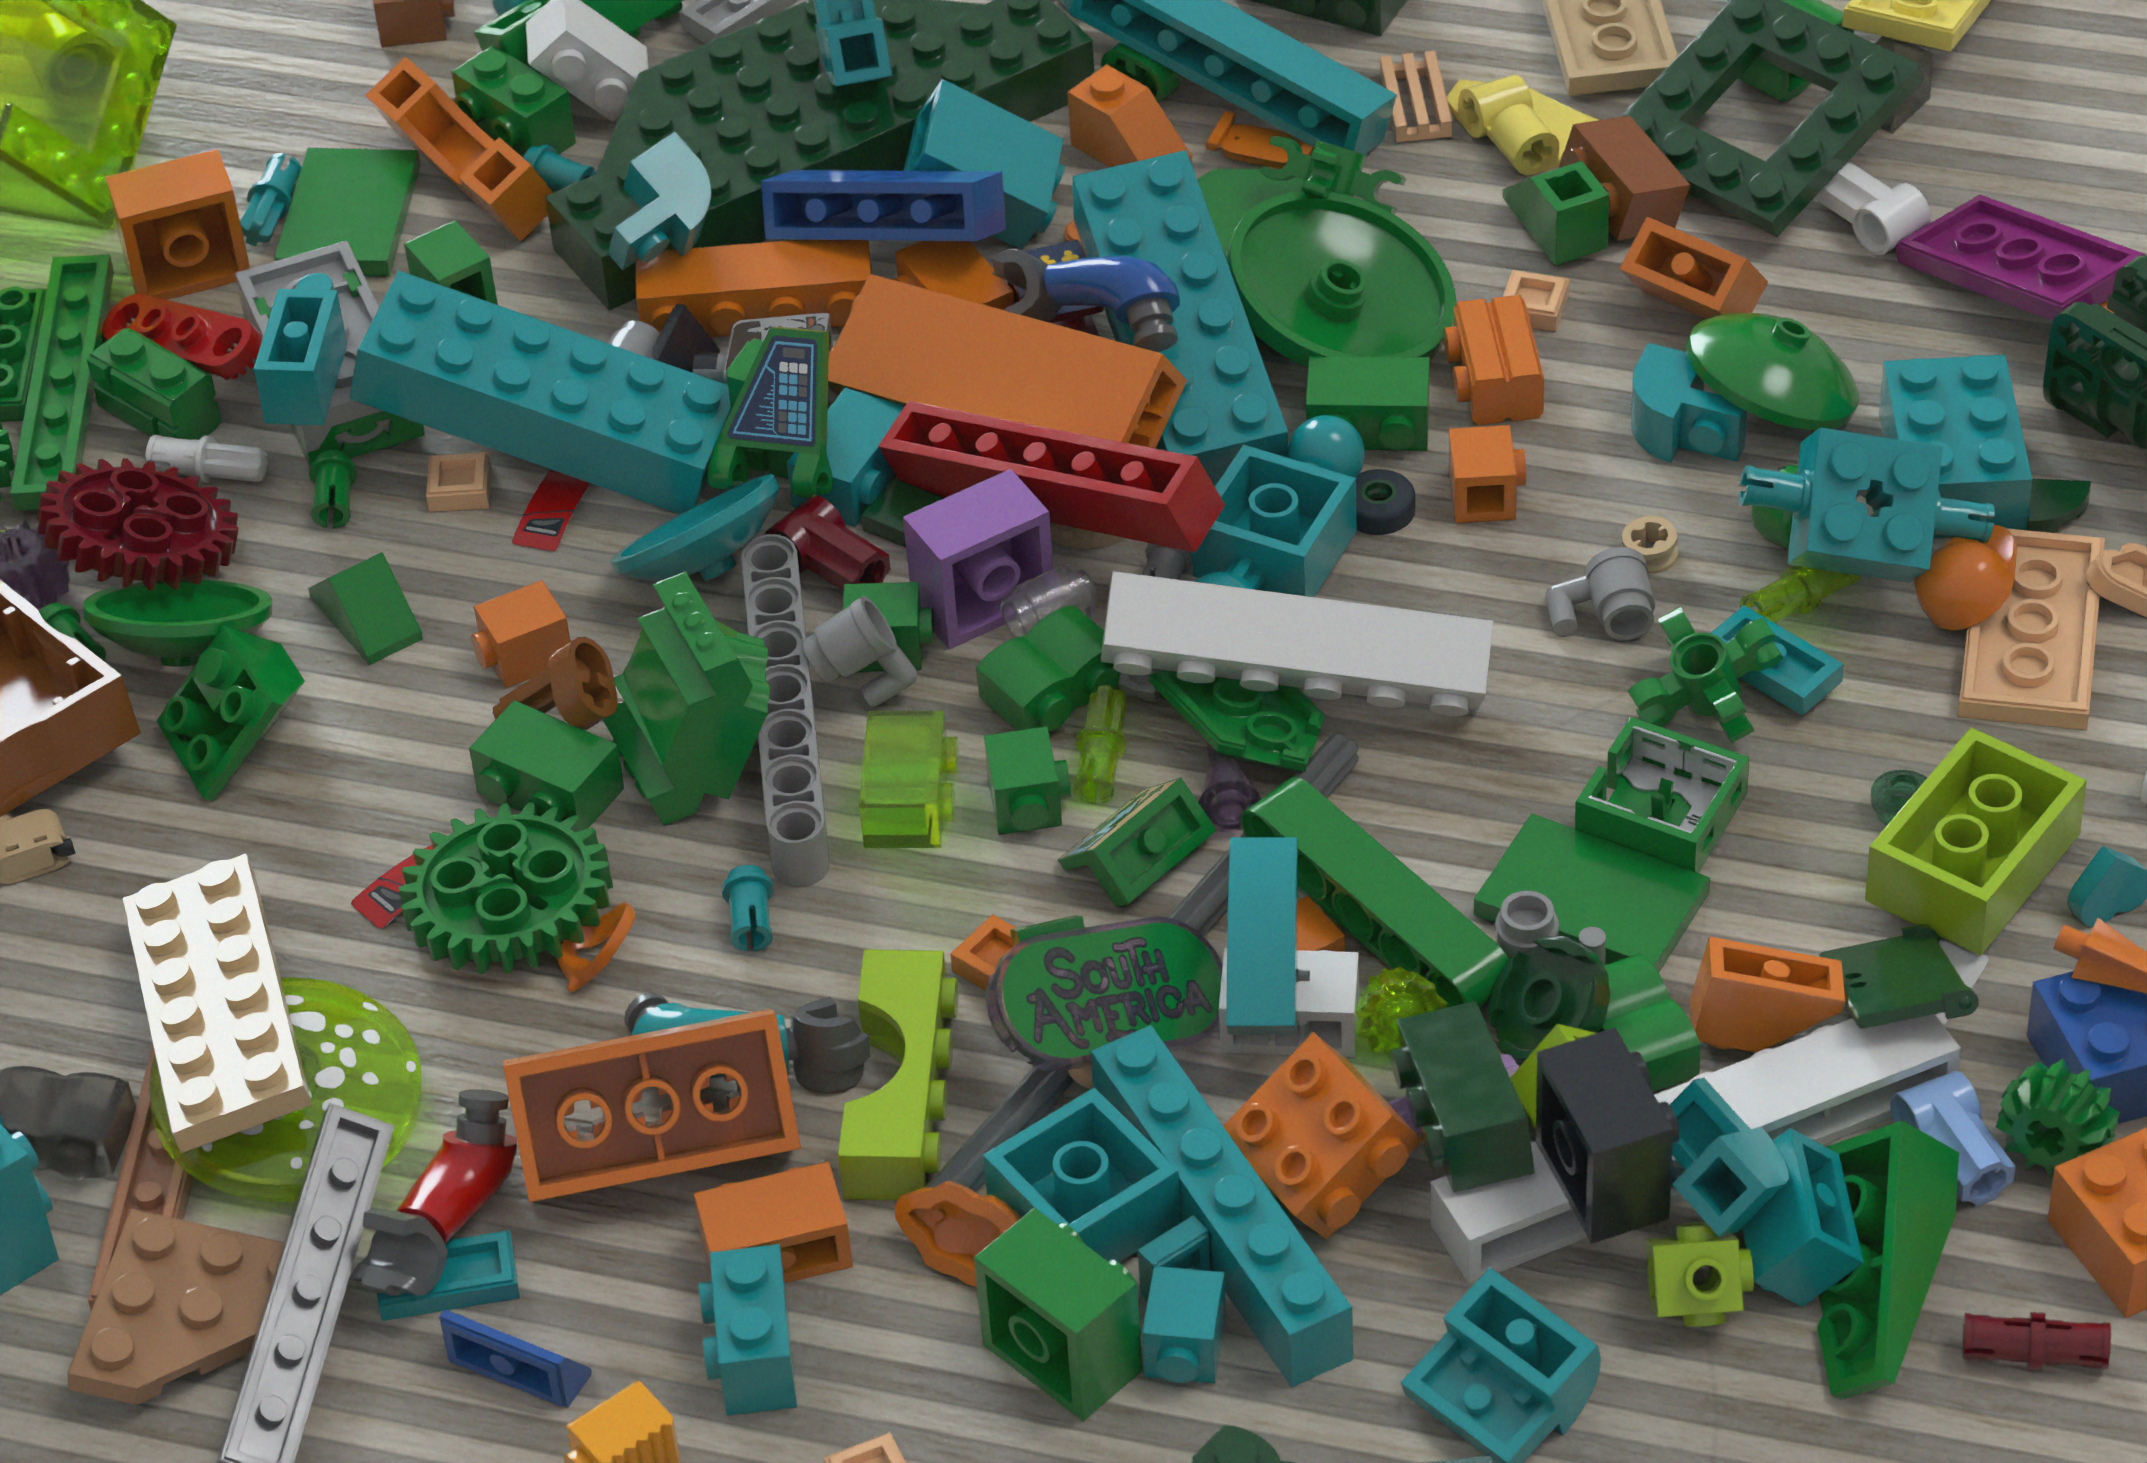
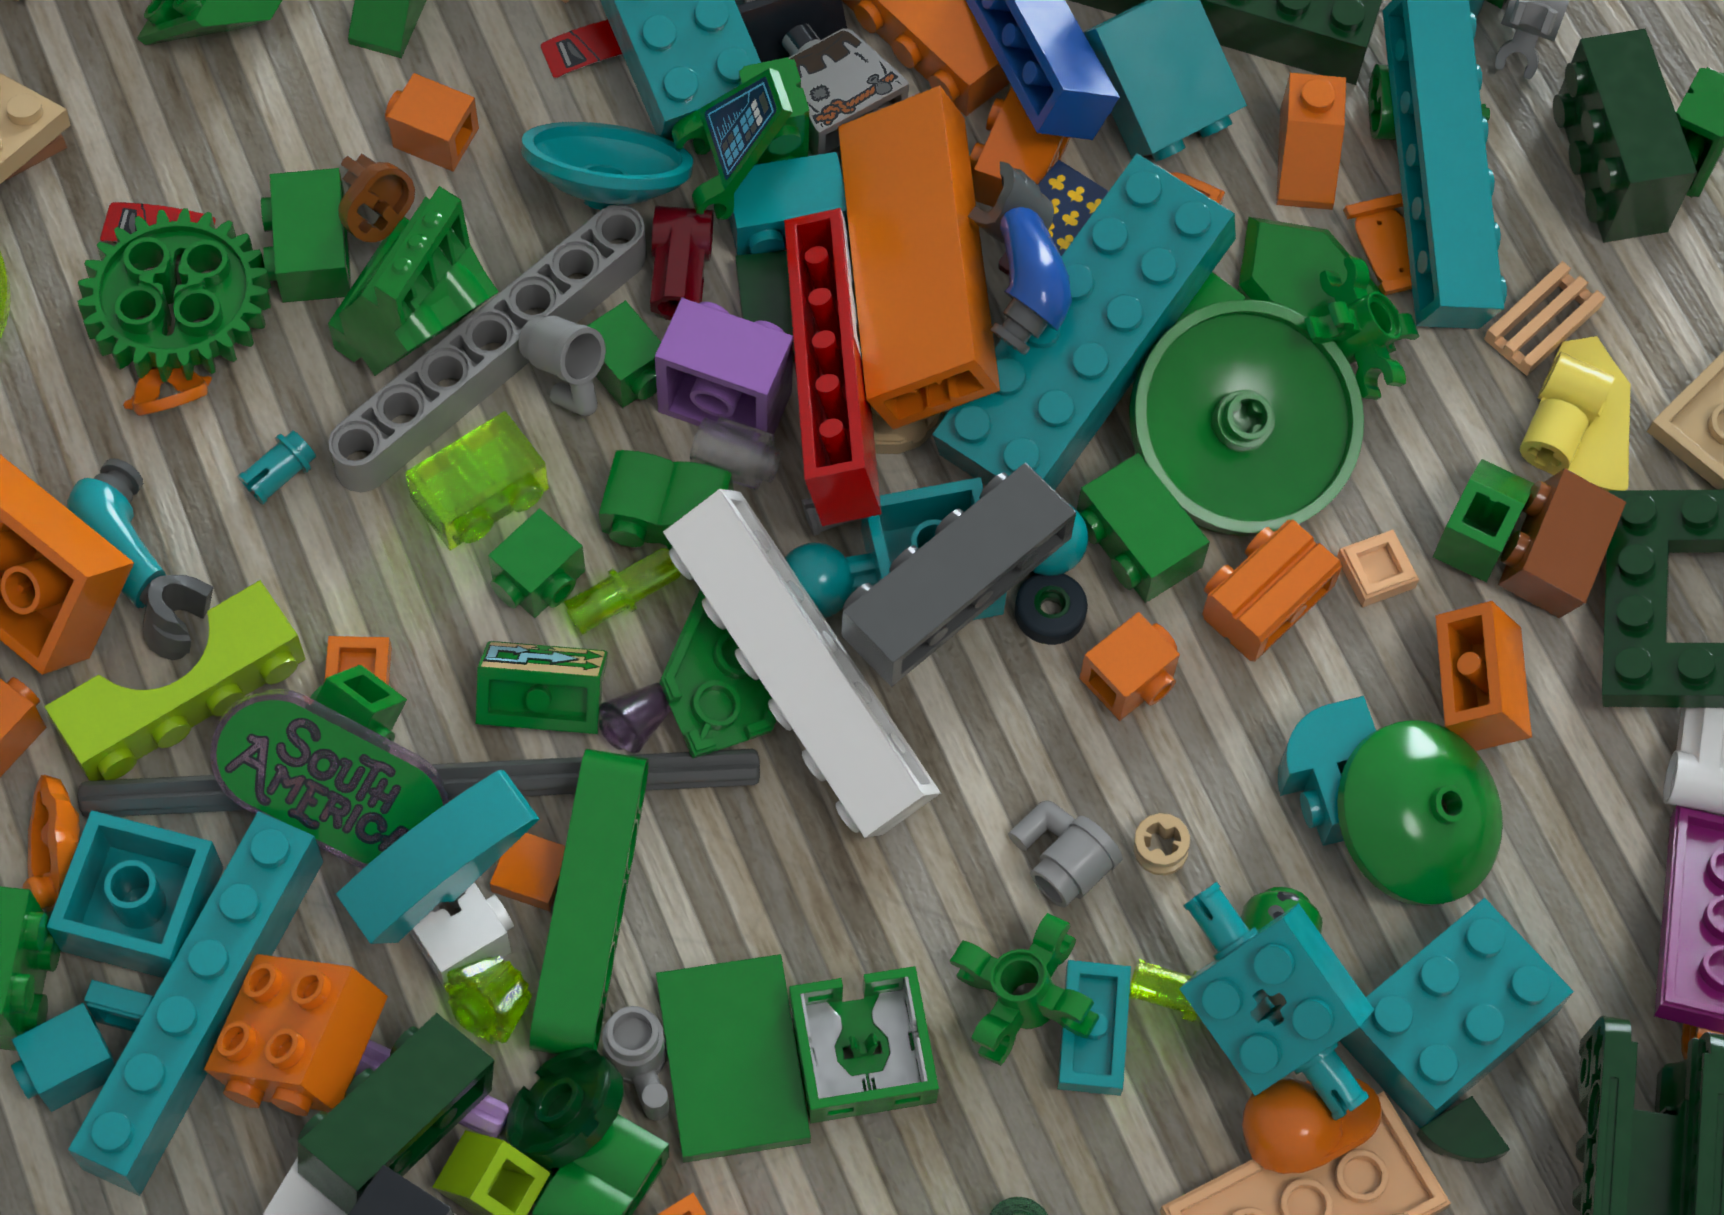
camera: 45 degrees right, 20 degrees up
(1326, 487) = (956, 573): none -> dark grey brick

